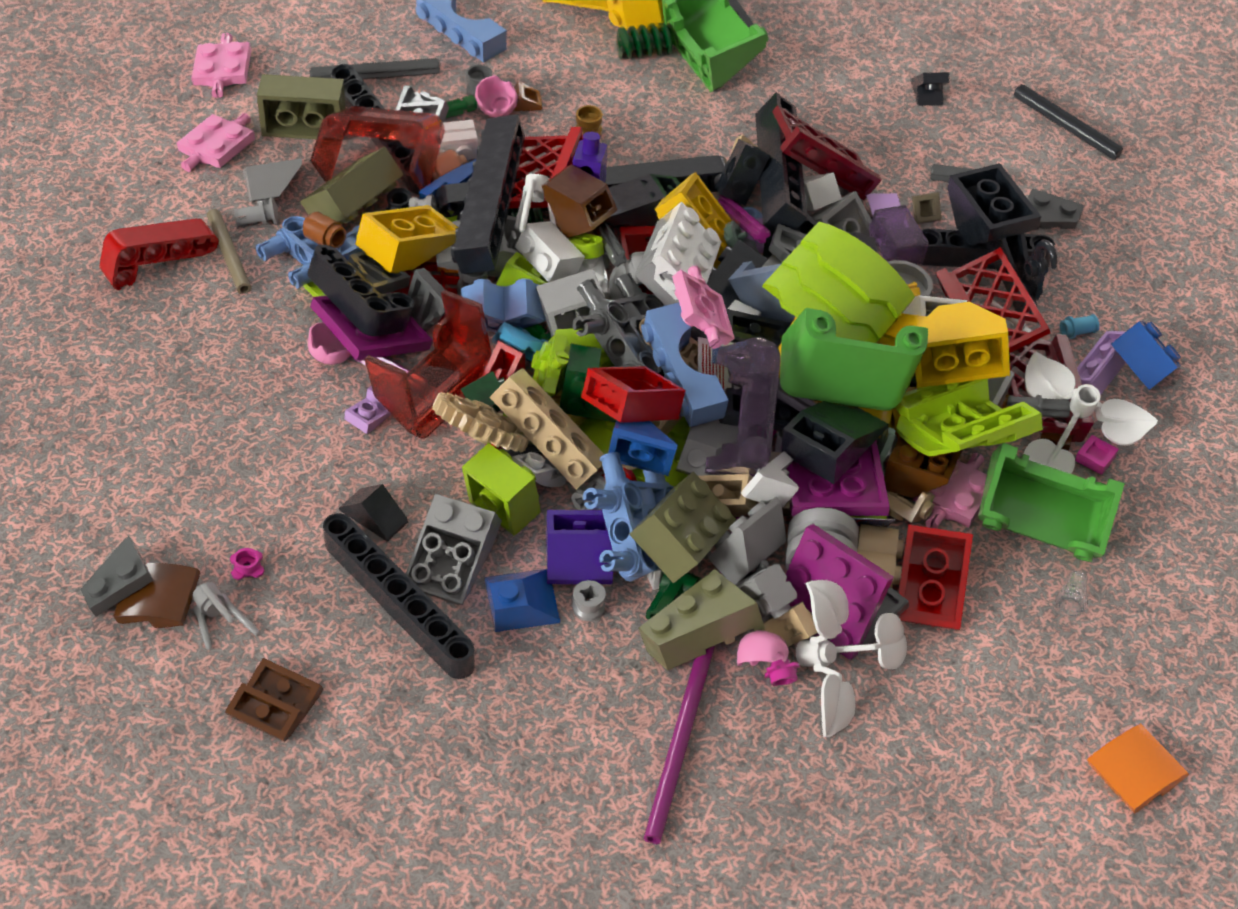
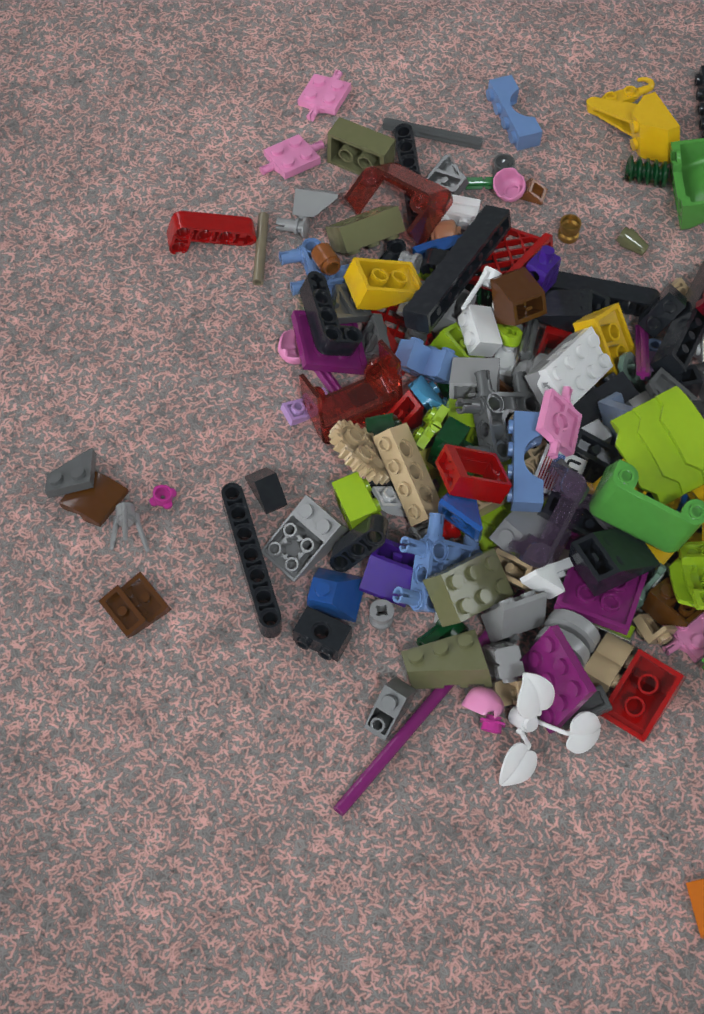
camera: 25 degrees right, 10 degrees up
(519, 636) = (314, 623): none -> black brick
(525, 540) = (359, 543): none -> black beam
(654, 700) = (390, 708): none -> dark grey slope
(666, 116) = (632, 241): none -> olive cone

